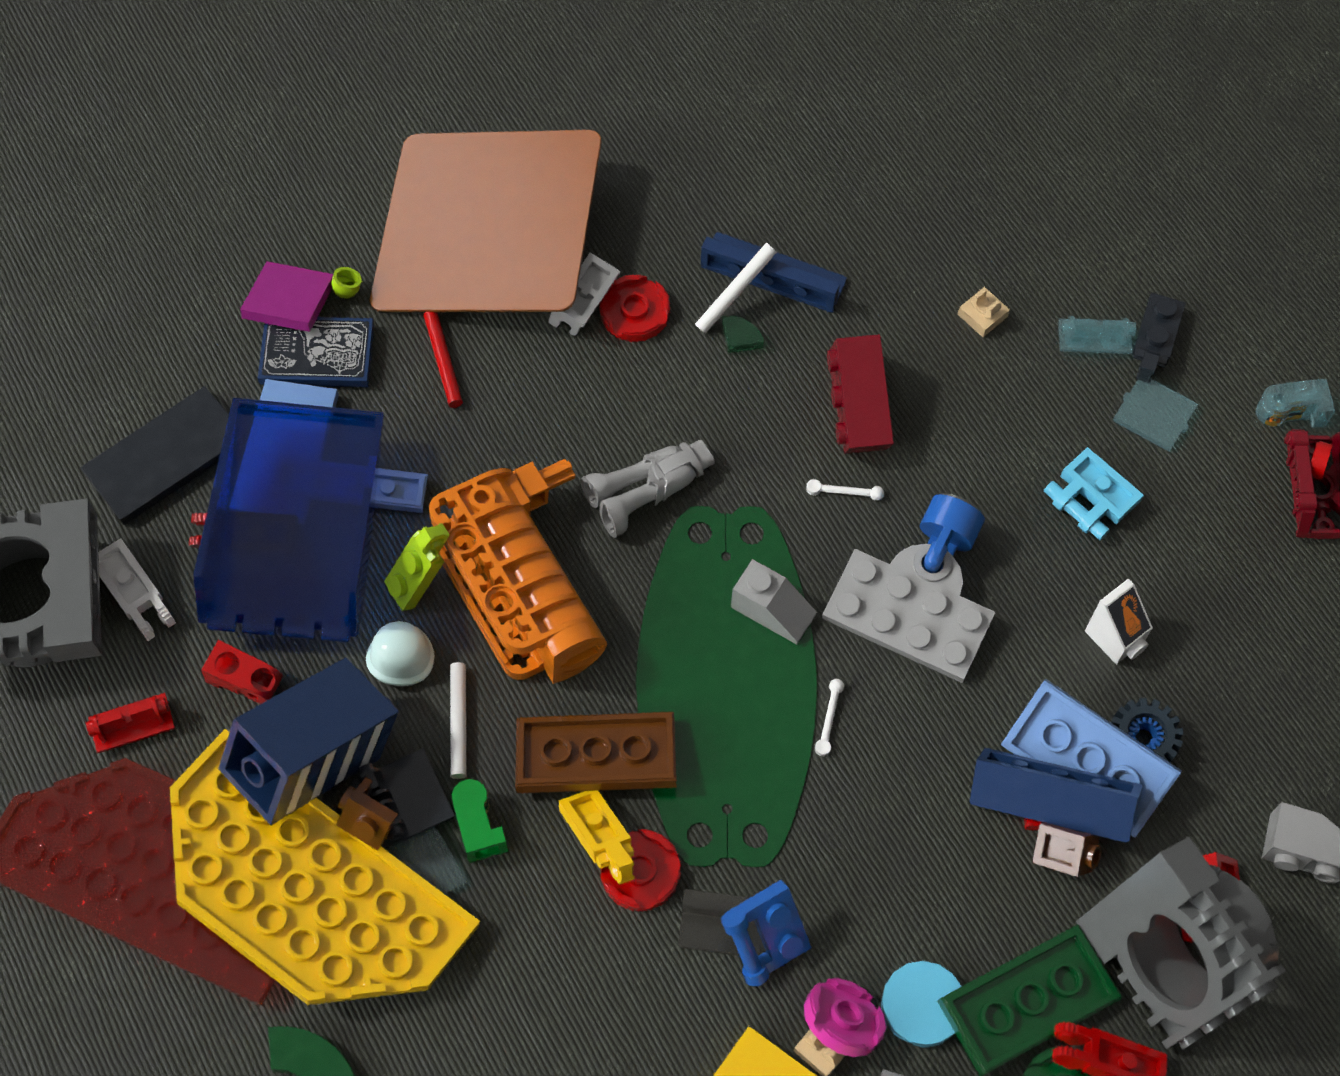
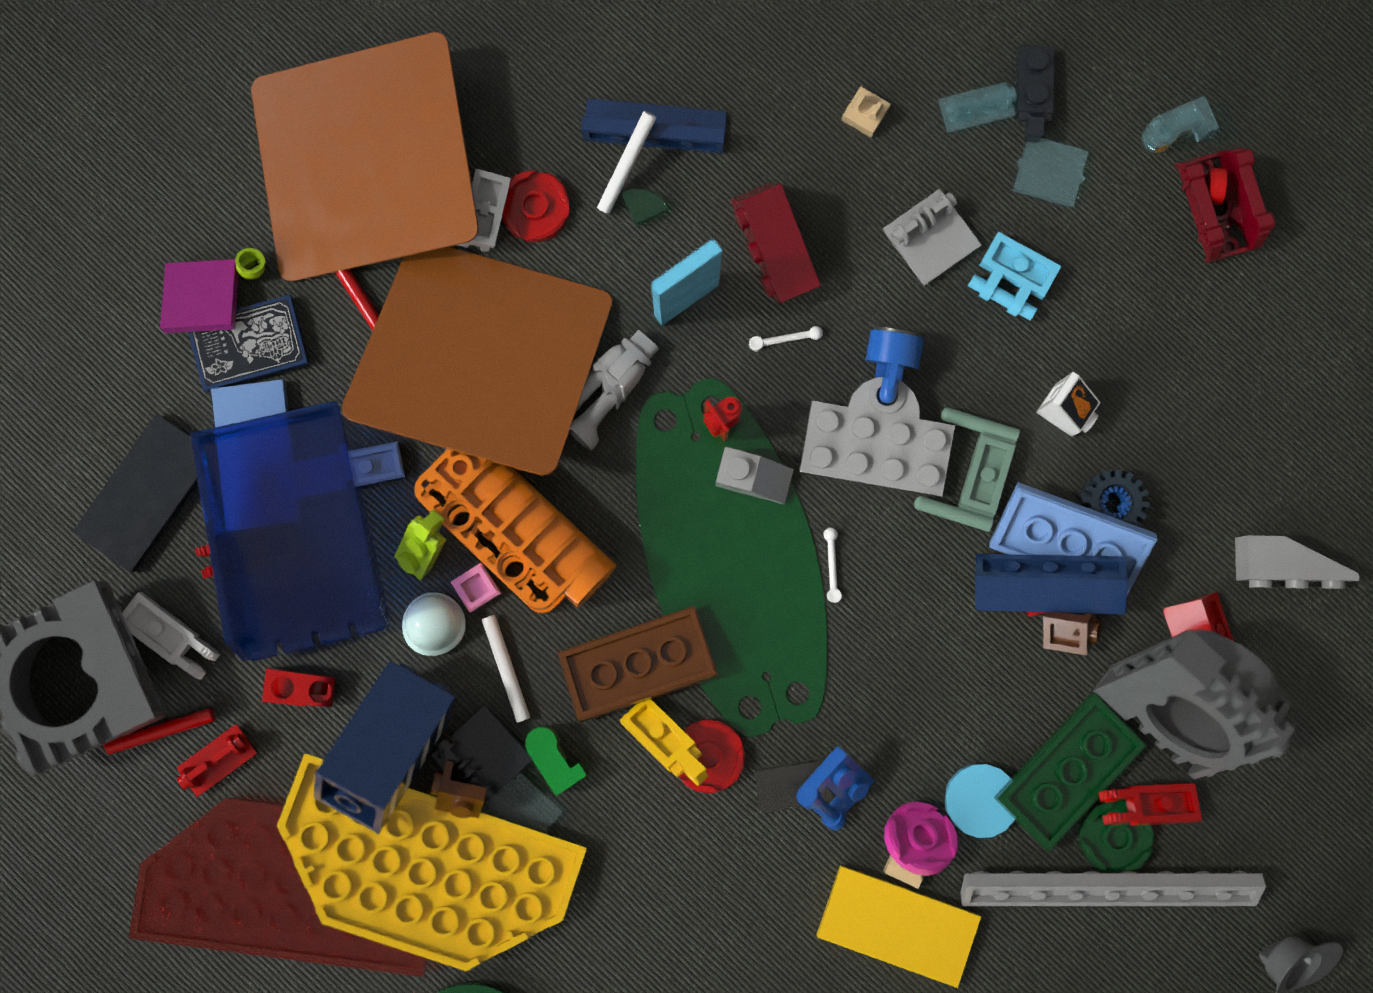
camera: 15 degrees left, 20 degrees up
(86, 678) = (160, 731): none -> red bar
(455, 633) = (476, 587): none -> bright pink tile
(536, 415) = (479, 358): none -> dark orange piece
(759, 532) = (722, 416): none -> red hinge
(760, 393) = (686, 282): none -> medium azure tile
(1014, 671) = (985, 473): none -> sand green plate
(1019, 437) = (932, 236): none -> light grey hinge

